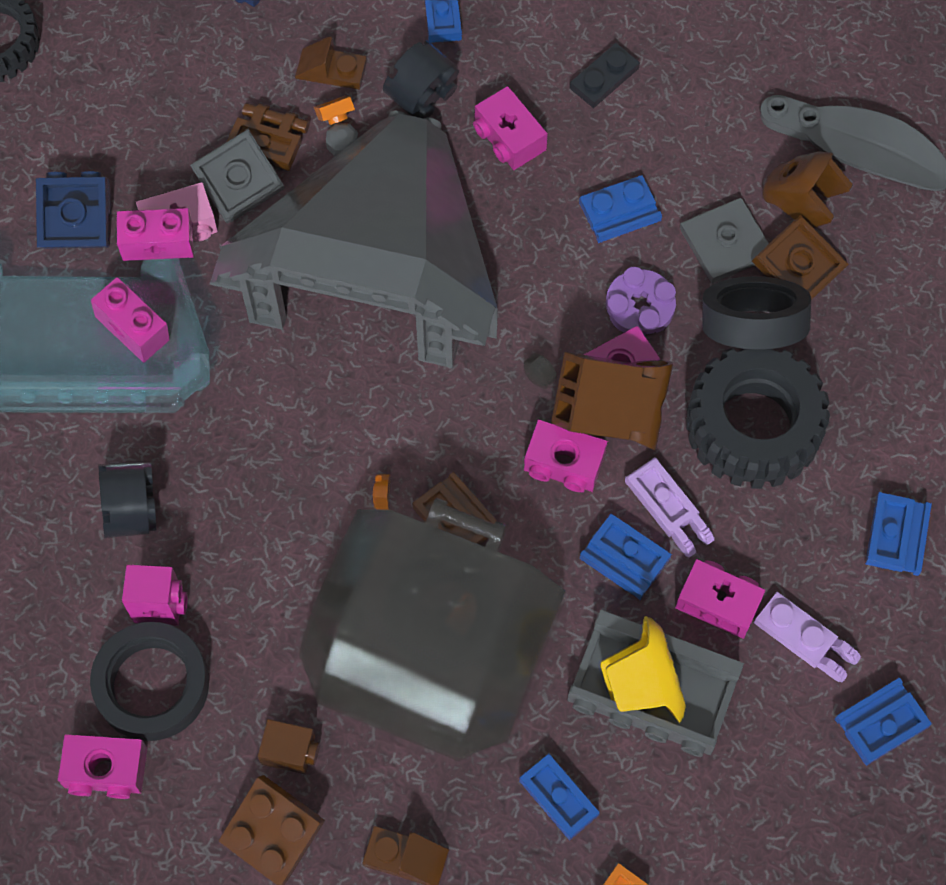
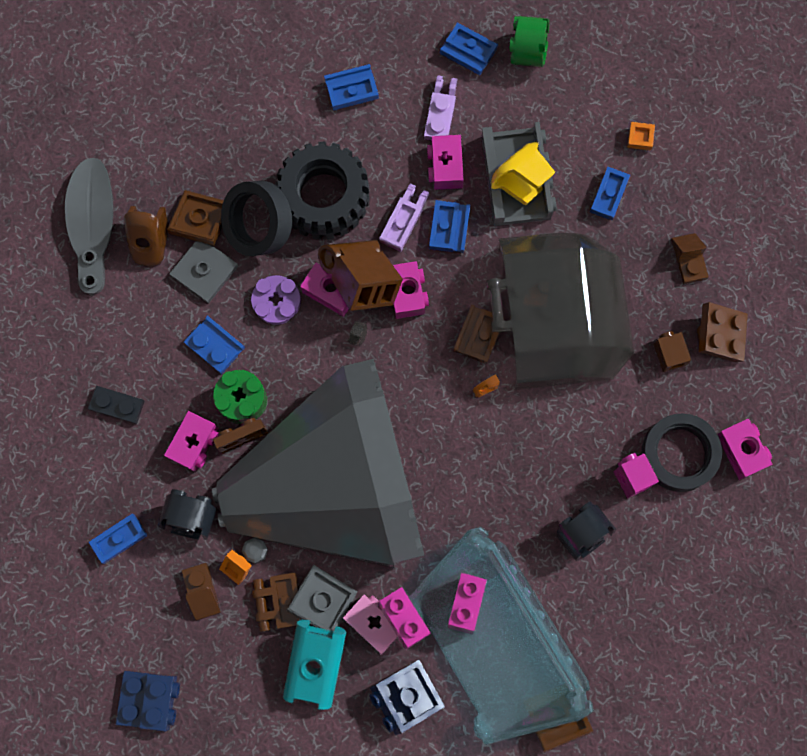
camera: 115 degrees left, 10 degrees up
(171, 131) = (312, 683): none -> teal piece
(485, 187) = (231, 439): none -> reddish brown plate
(533, 200) = (232, 385): none -> green brick
(849, 804) = (530, 41): none -> green brick

